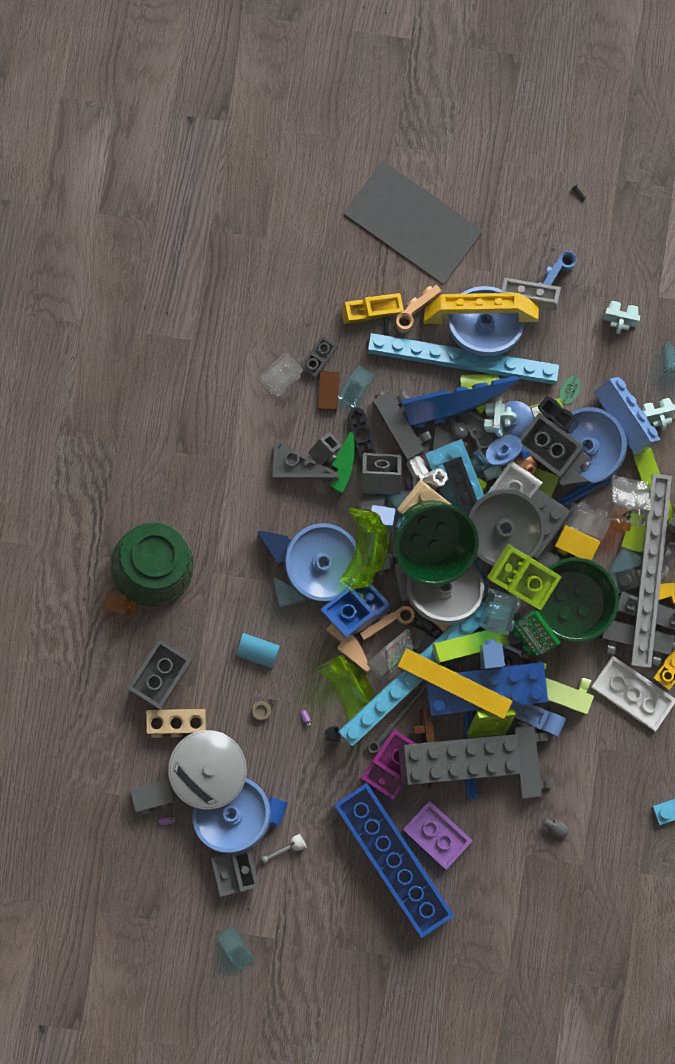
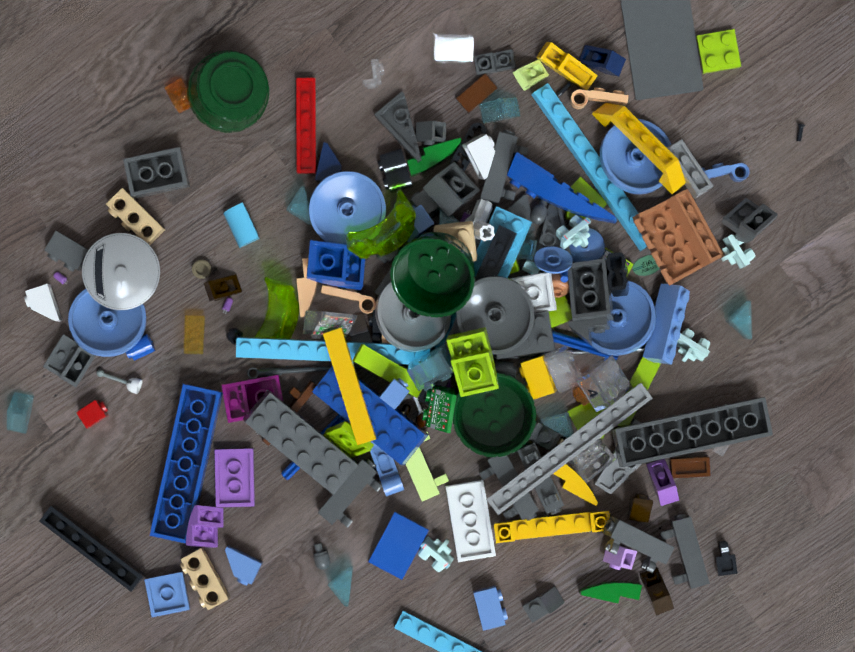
camera: 55 degrees right, 5 degrees up
(172, 850) = (43, 301): none -> white slope
(232, 533) = (306, 125): none -> red plate
(243, 445) = (377, 70): none -> clear bracket
(289, 893) = (93, 413): none -> red brick
(290, 708) = (222, 288): none -> dark brown slope
(304, 762) = (194, 334): none -> clear yellow plate
(327, 501) = (395, 170): none -> black brick
(353, 339) = (530, 74): none -> yellowish green slope
(376, 429) = (480, 153): none -> white slope
(389, 990) = (92, 547): none -> black brick
(392, 279) = (602, 60): none -> dark blue slope
(452, 892) = (204, 526): none -> medium lavender slope
(465, 193) = (718, 51): none -> lime plate
(475, 968) = (167, 594): none -> medium blue plate
(483, 922) = (206, 568): none -> tan brick
(508, 891) = (243, 565): none -> medium blue slope
(572, 346) = (678, 237): none -> nougat slope
(592, 832) = (342, 585): none -> clear light blue slope
(602, 763) = (398, 545): none -> blue slope
(608, 286) = (749, 220): none -> dark grey brick
(634, 737) = (438, 551): none -> light aqua hips

